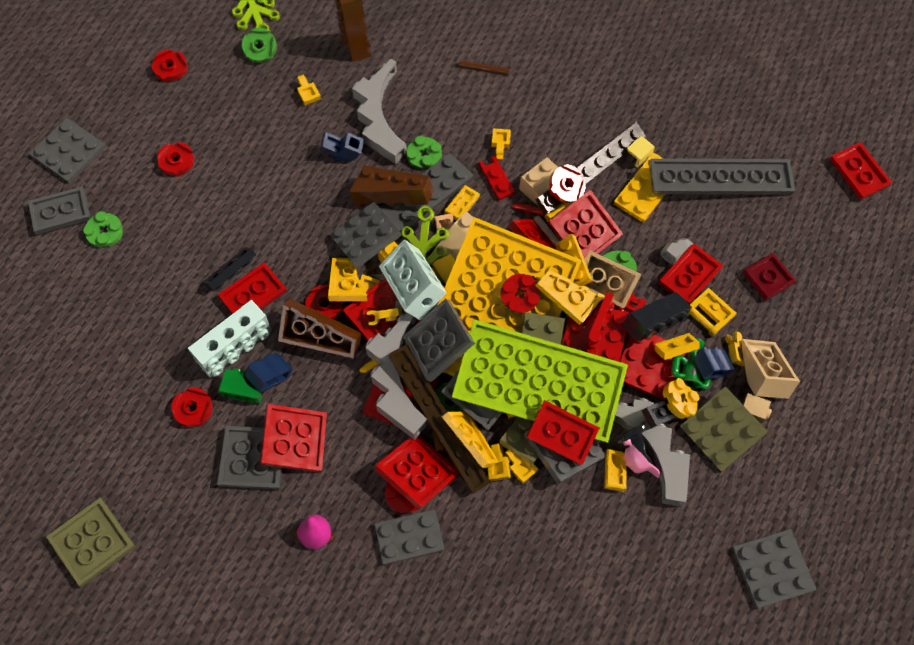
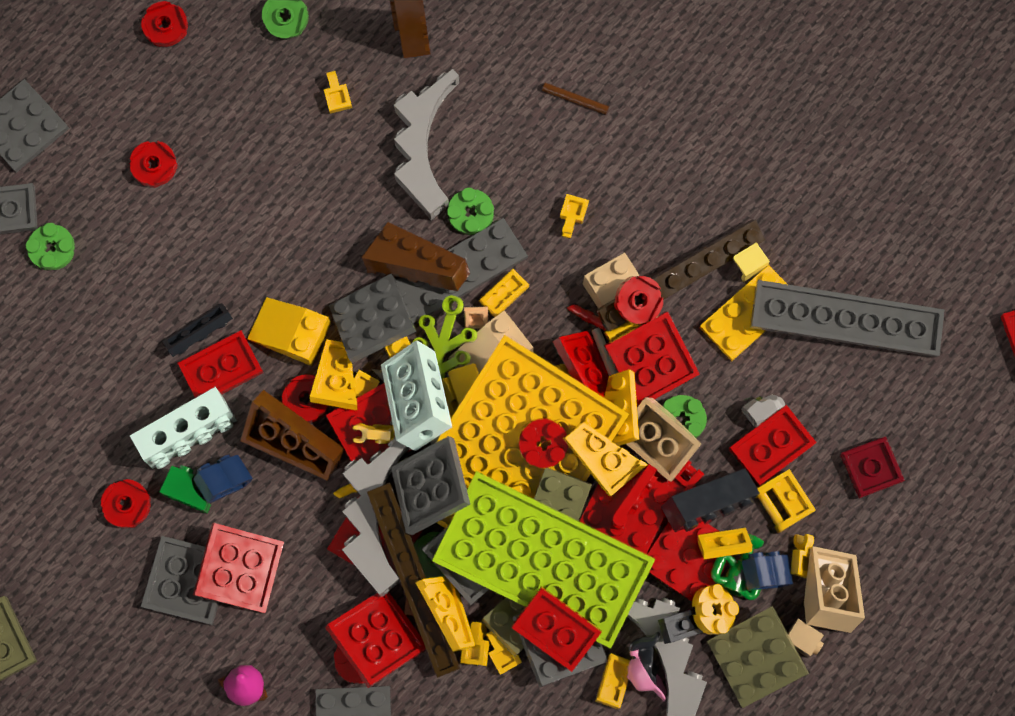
camera: 15 degrees right, 10 degrees up
(303, 256) = (290, 330): none -> yellow slope
(343, 148) = (365, 188): dark blue brick -> none
(497, 179) = (557, 265): red hinge -> none

